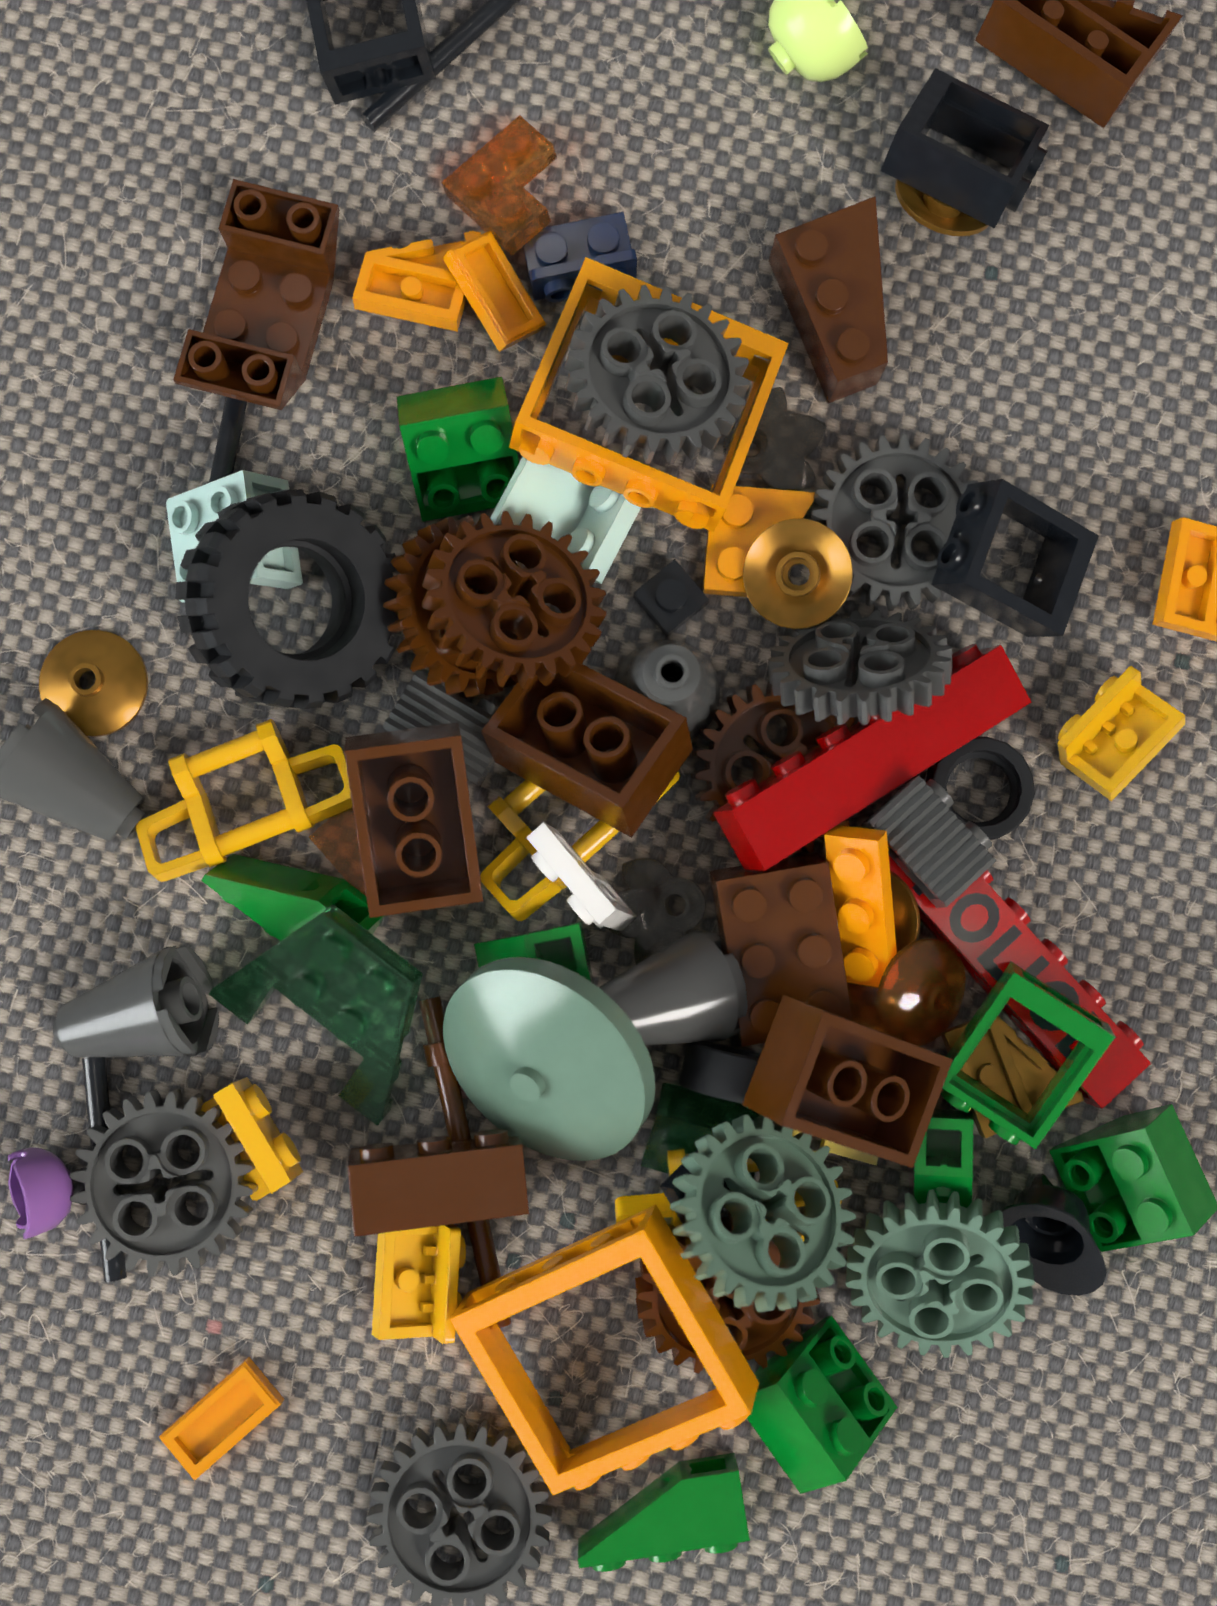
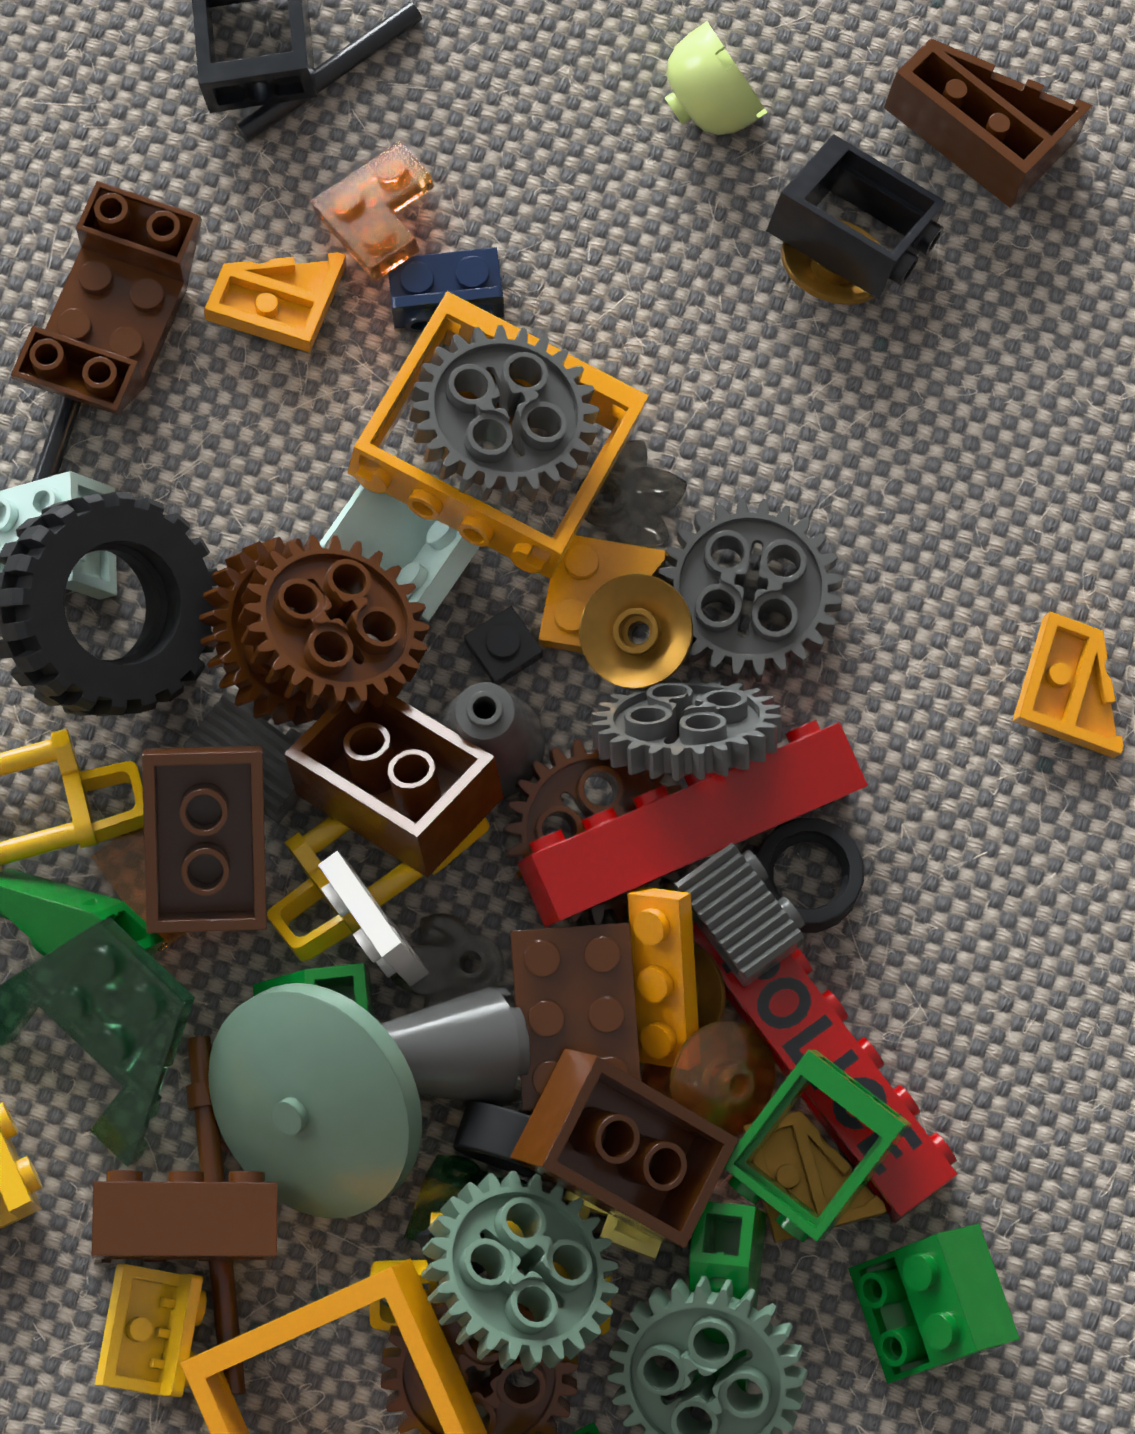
camera: 10 degrees right, 10 degrees down
(458, 446) = (295, 469): green slope -> none
(494, 291) = (352, 315): light orange tile -> none
(836, 296) = (707, 352): reddish brown wedge -> none
(1056, 572) = (911, 661): black window -> none
(1058, 1238) = (839, 1357): black piece -> none
(1117, 734) = (960, 829): yellow bracket -> none

